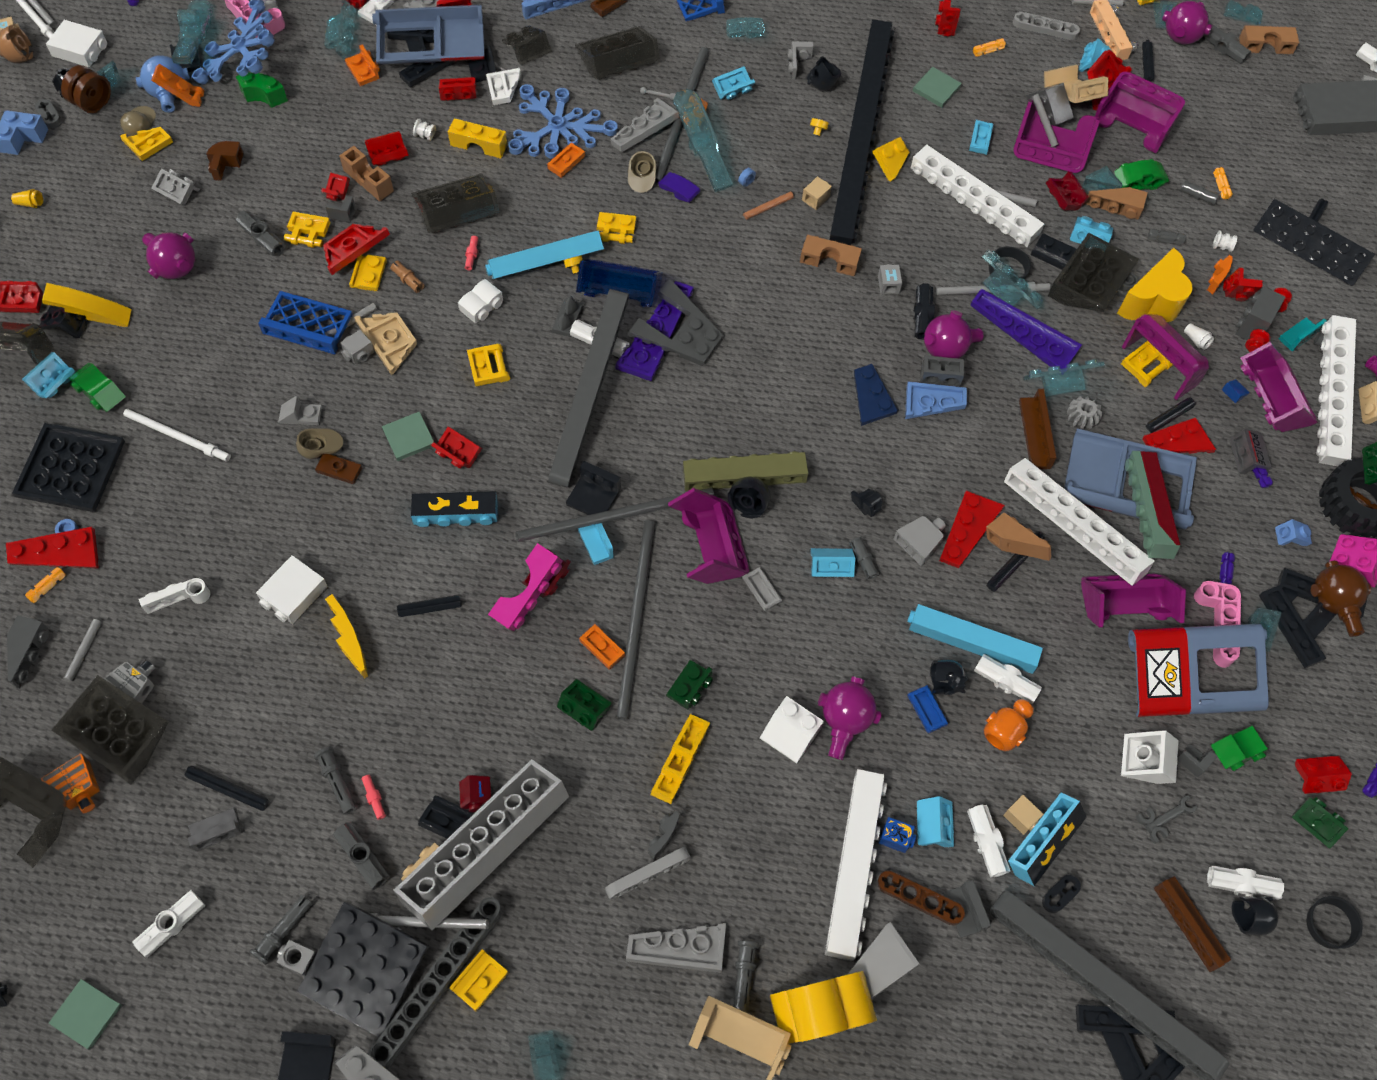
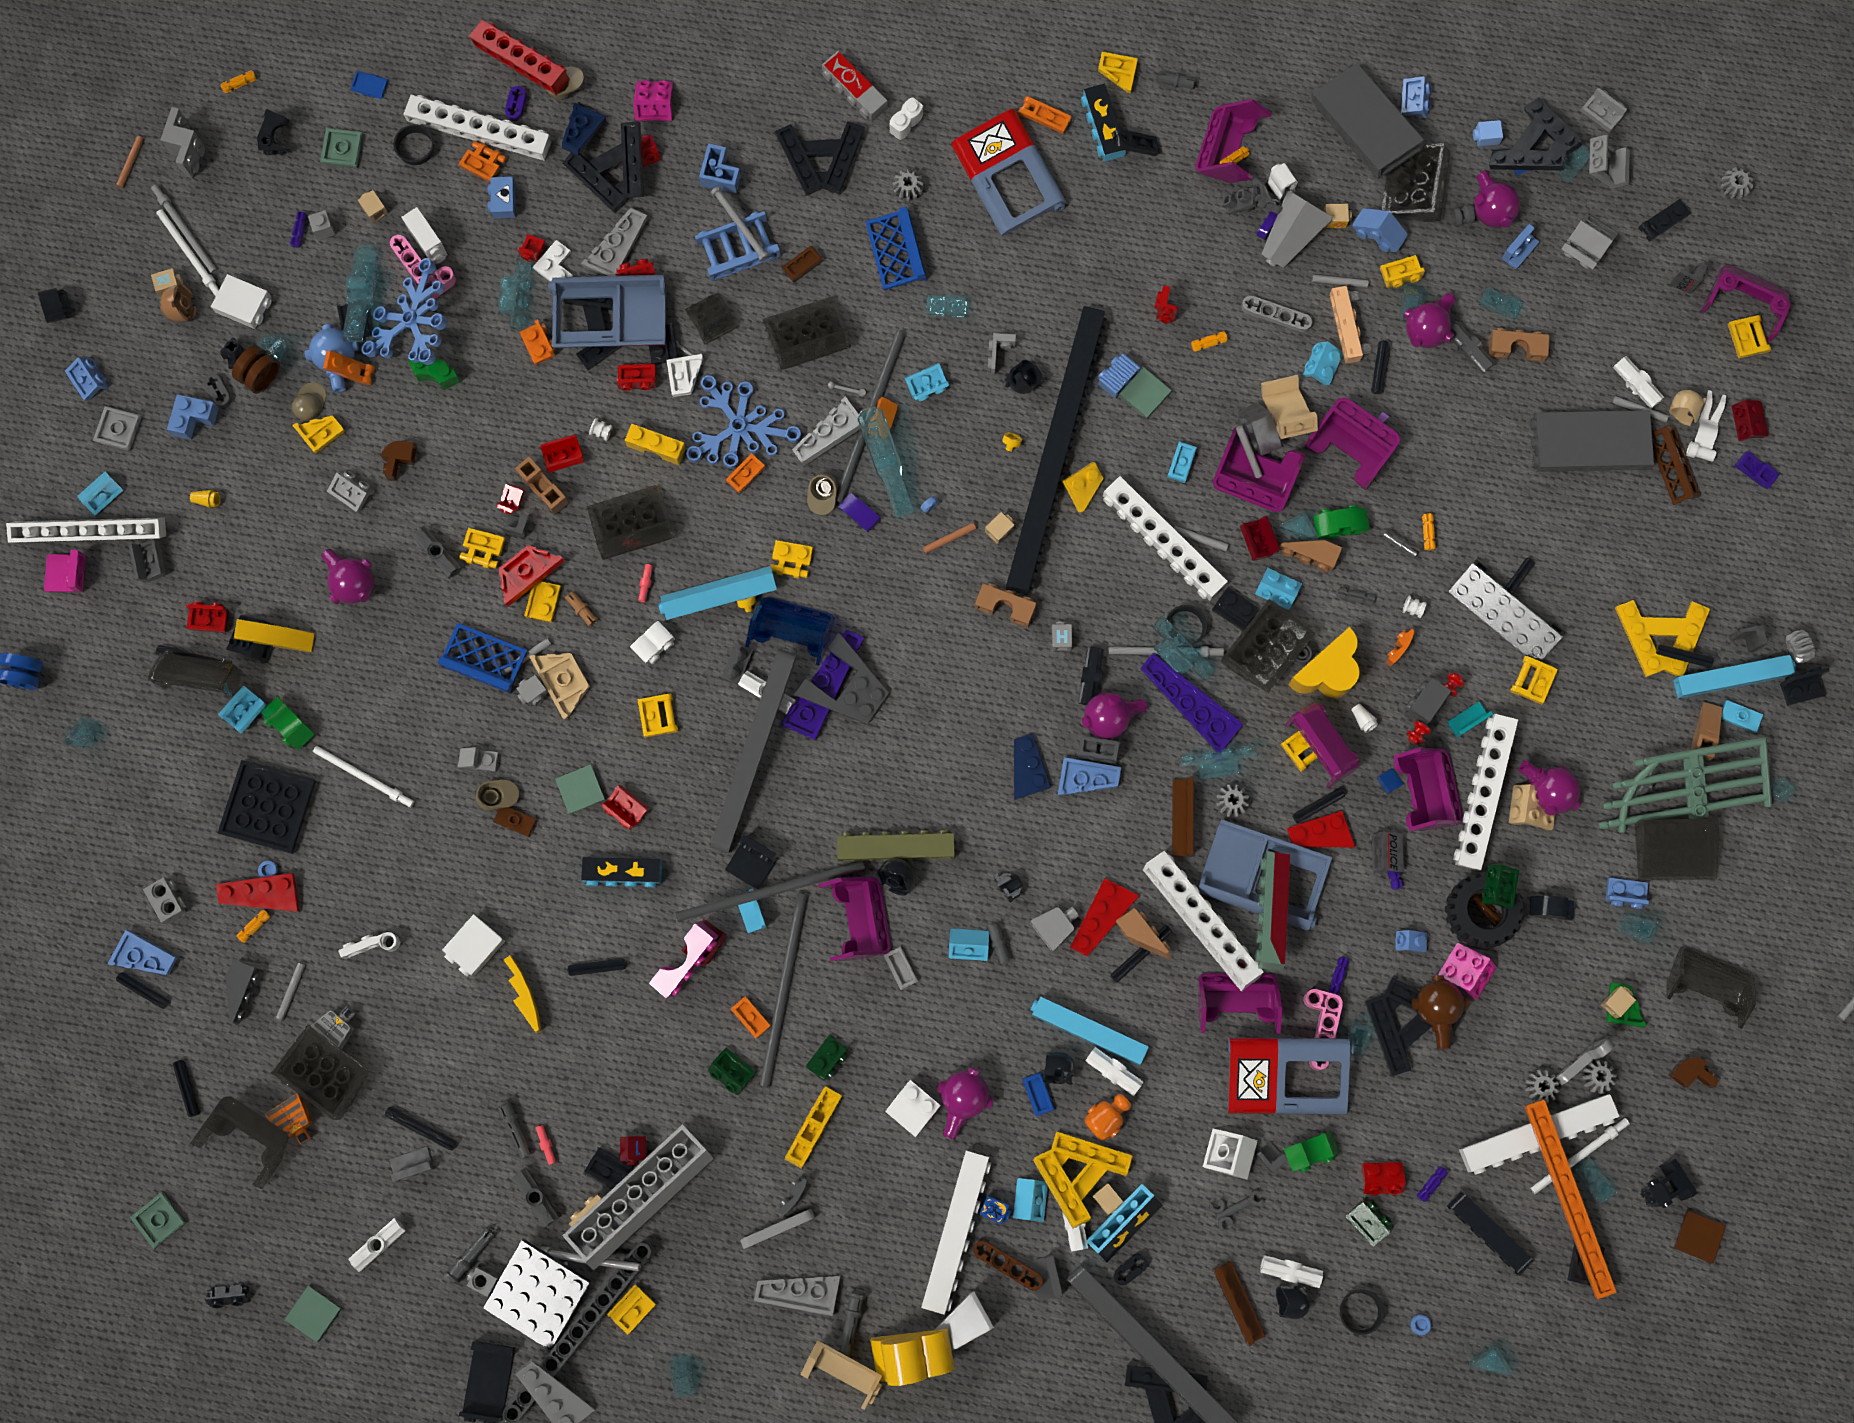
camera: 10 degrees right, 15 degrees up
(910, 72) = (1118, 375): none -> medium blue brick
(985, 808) = (1098, 1161): none -> yellow plate
(1109, 66) = (1327, 389): red wing -> none
(1239, 287) = (1416, 671): red bracket -> none
(1360, 299) = (1540, 682): none -> yellow plate

